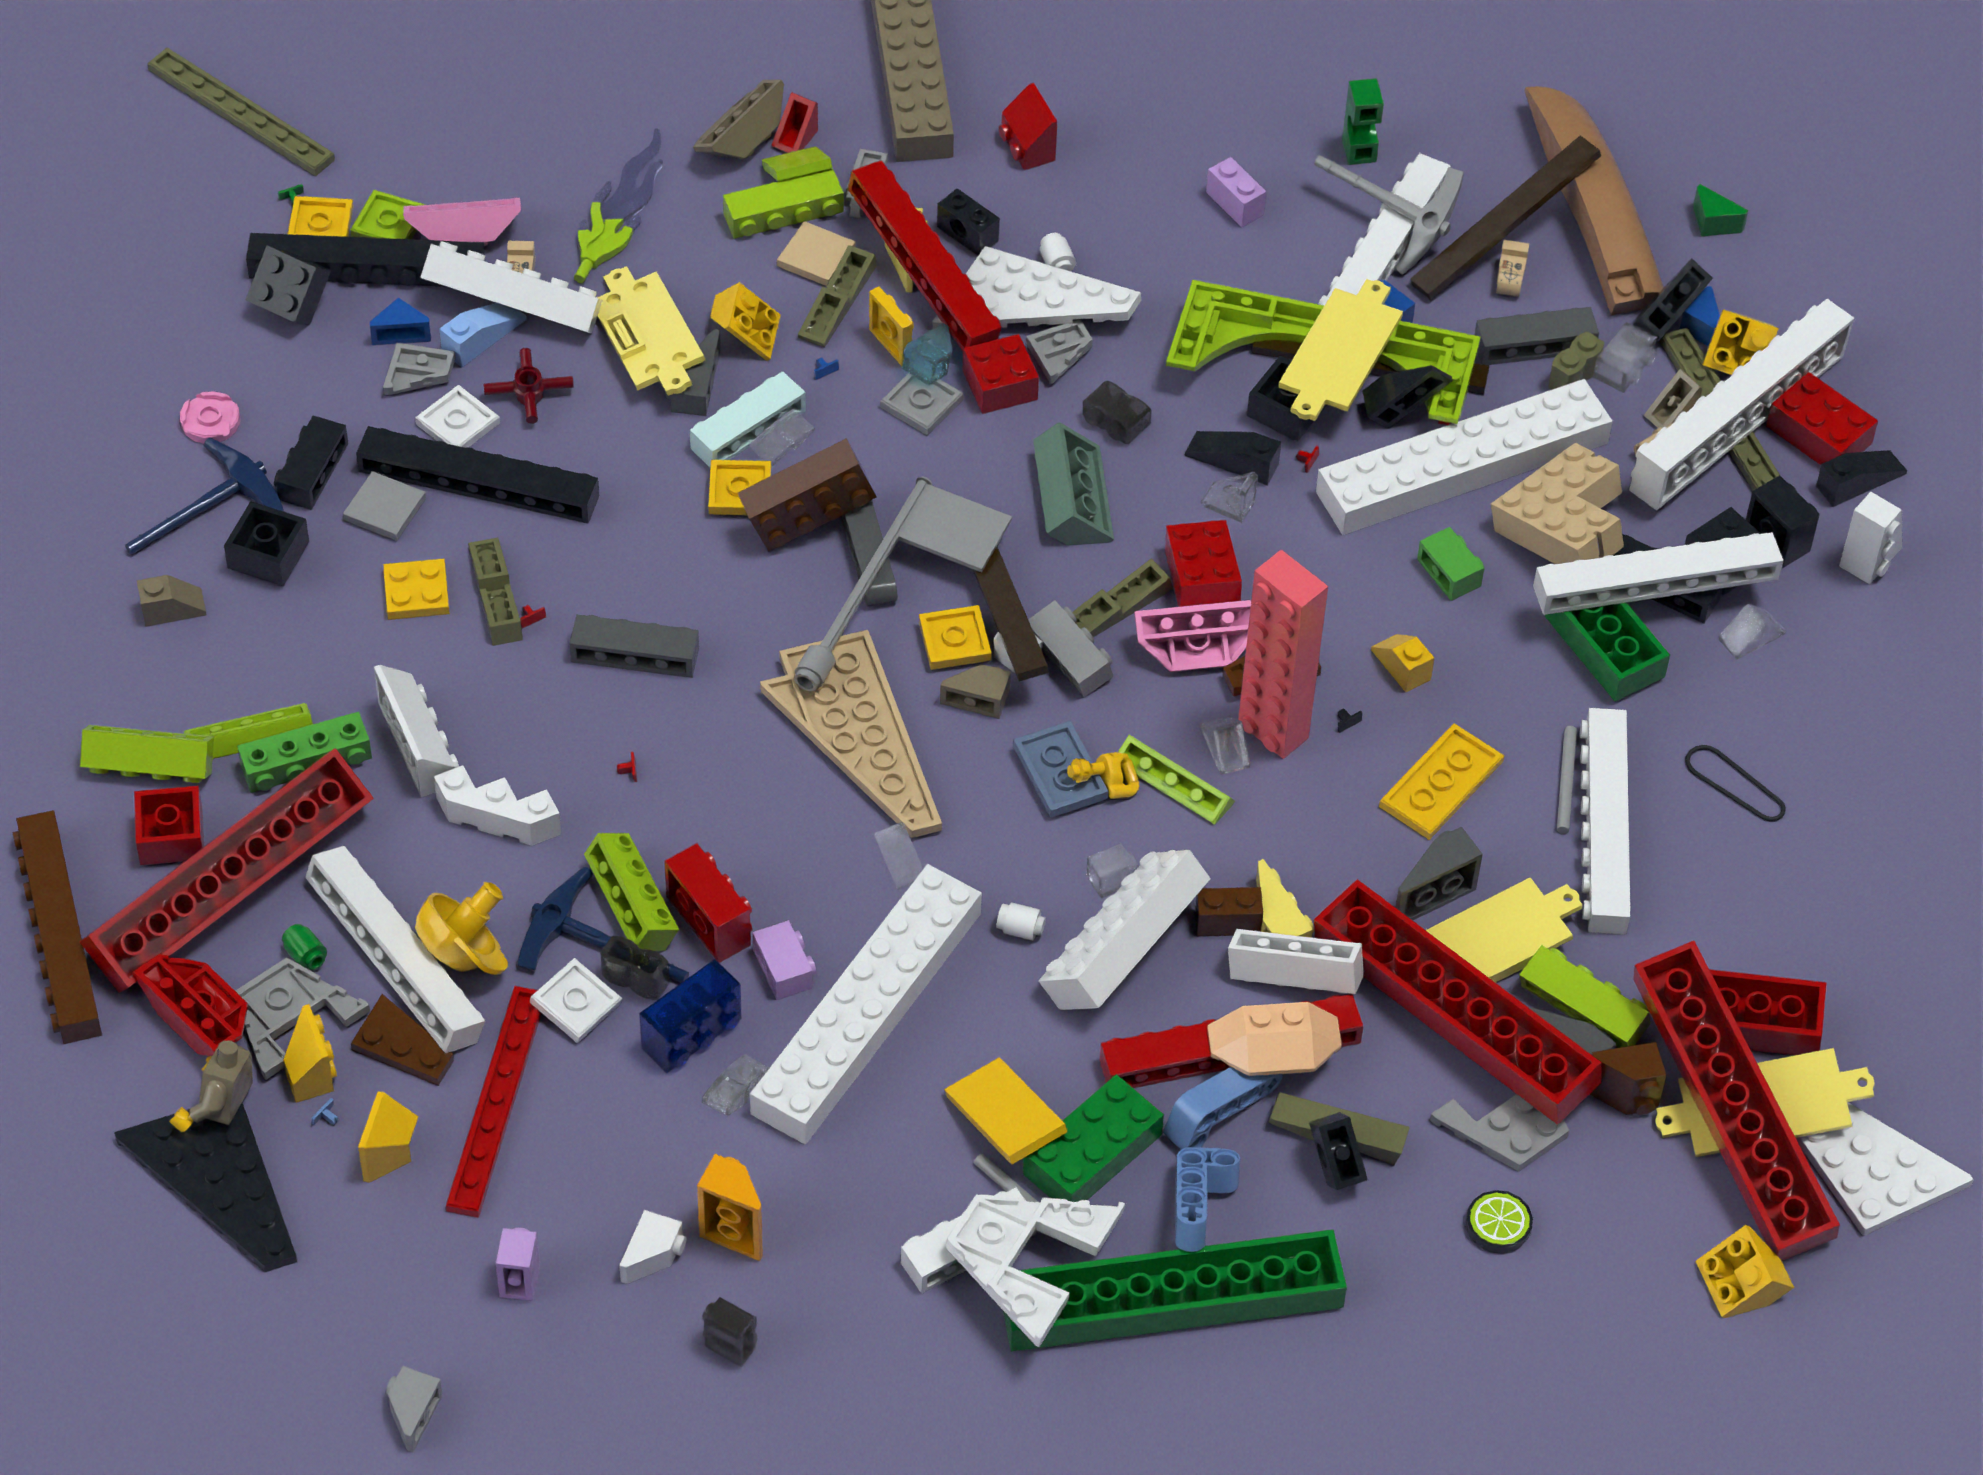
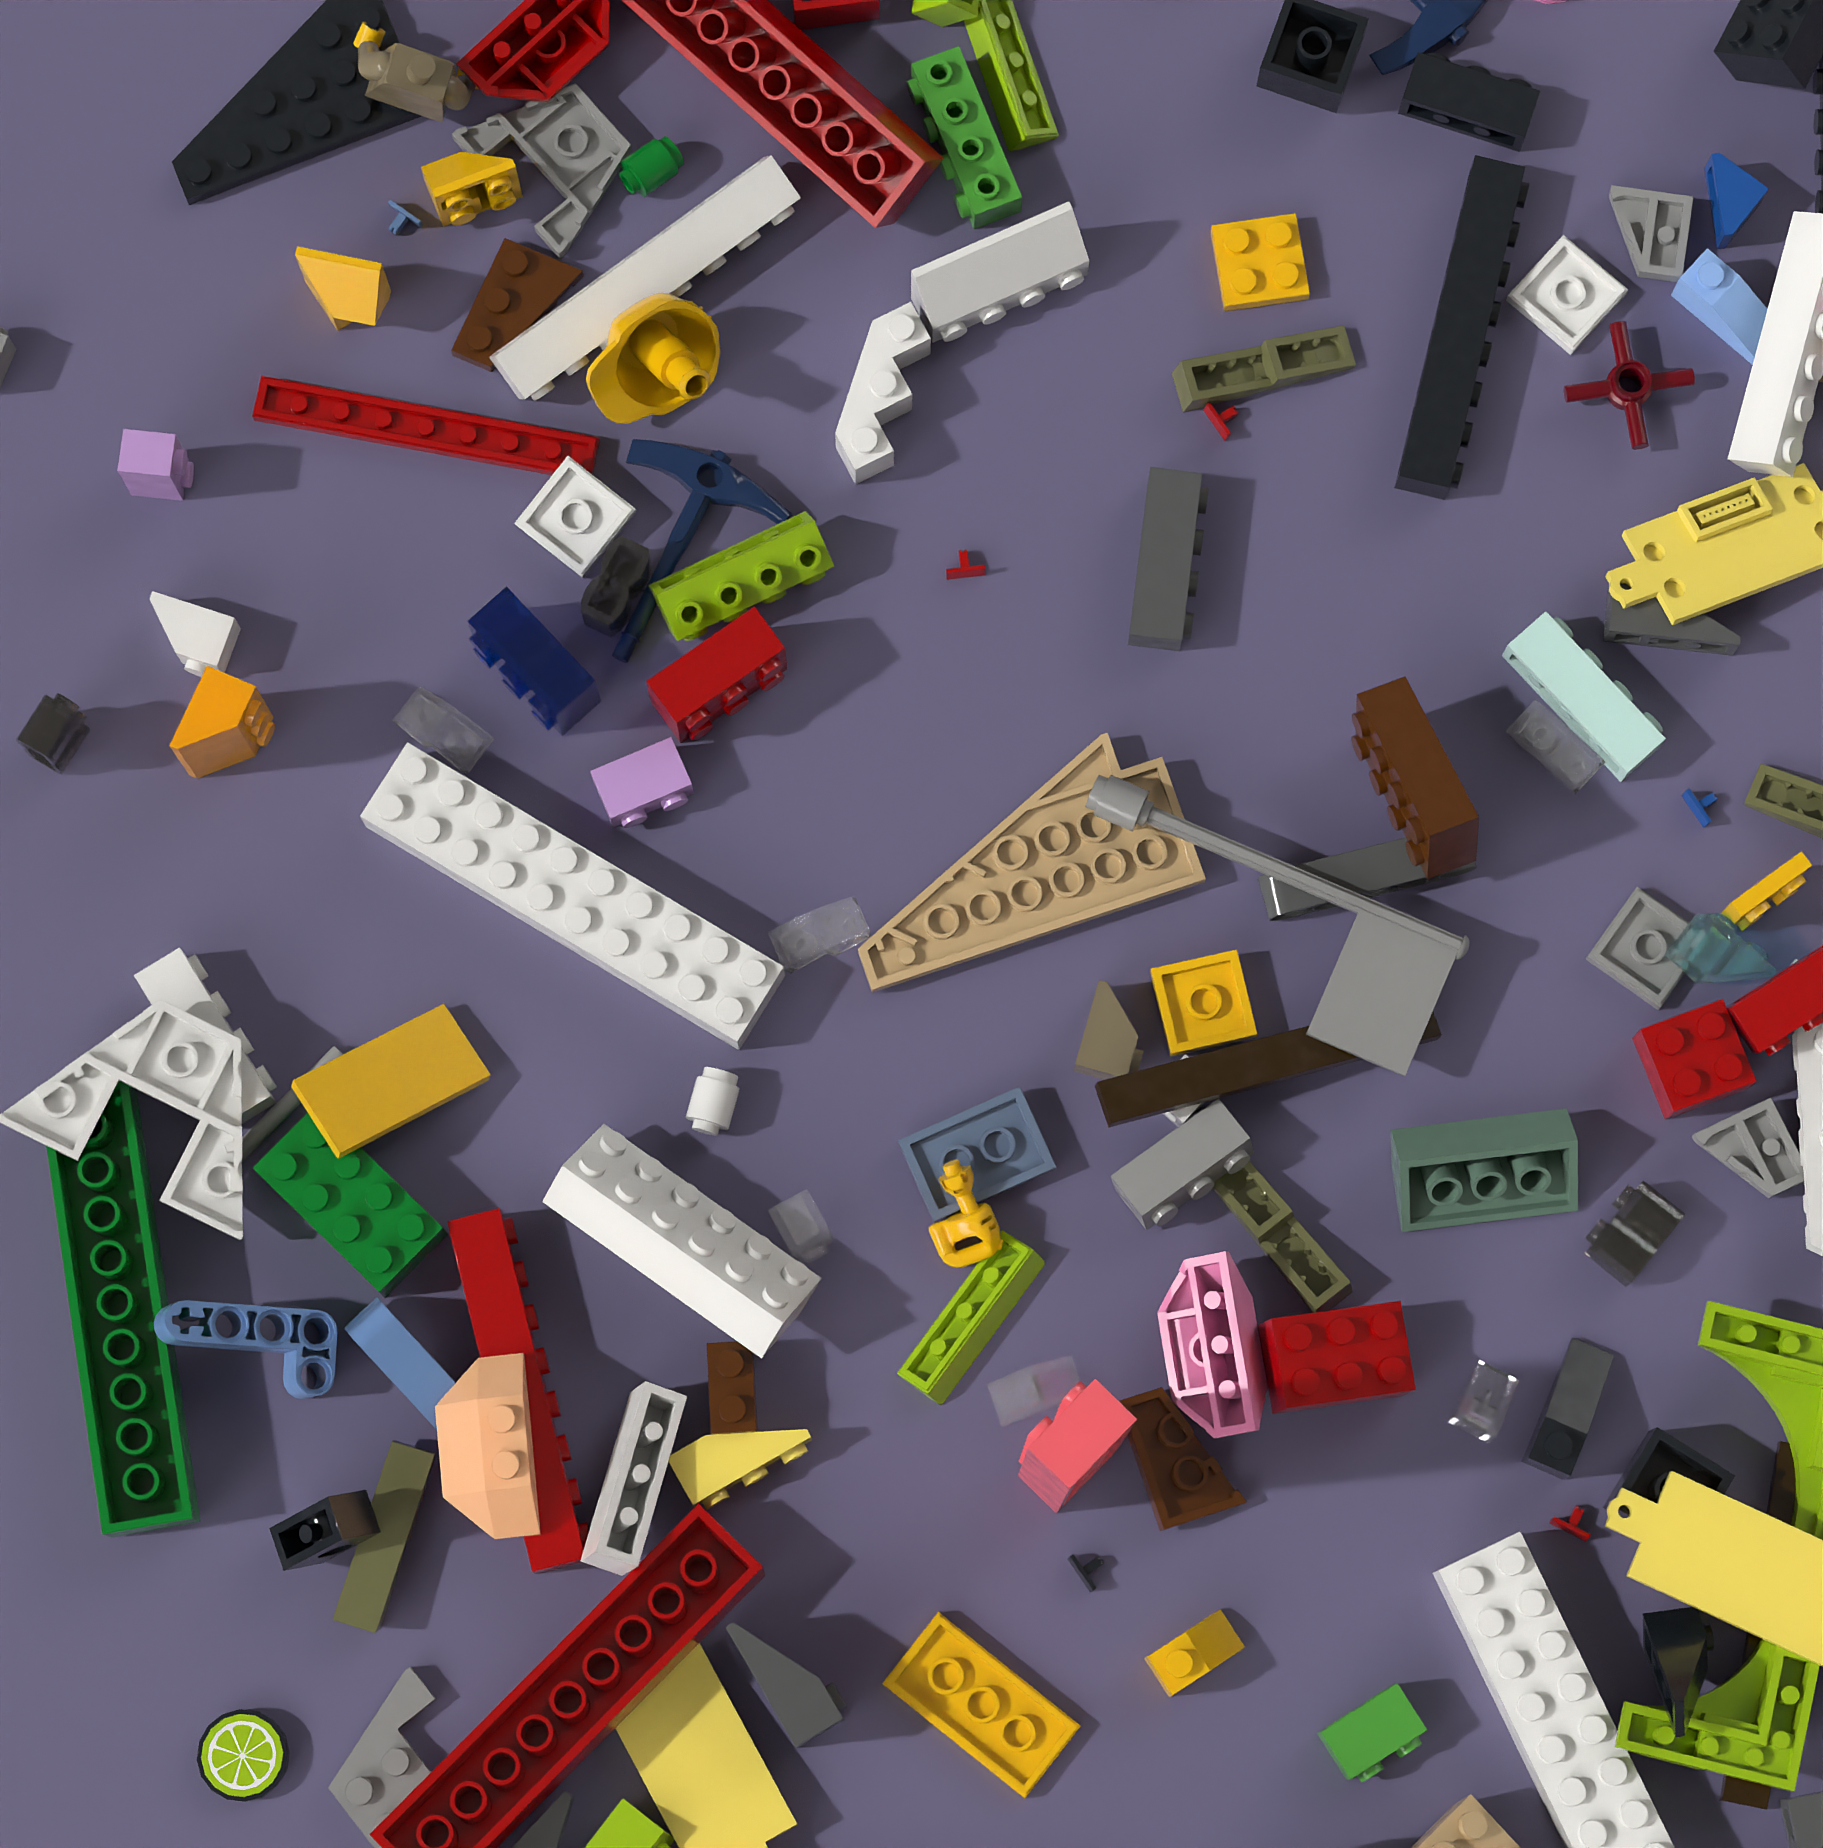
camera: 90 degrees right, 25 degrees up
(384, 506) = (1404, 207): light grey tile -> none
(728, 479) = (1462, 689): yellow plate -> none
(747, 318) = (1768, 685): yellow slope -> none

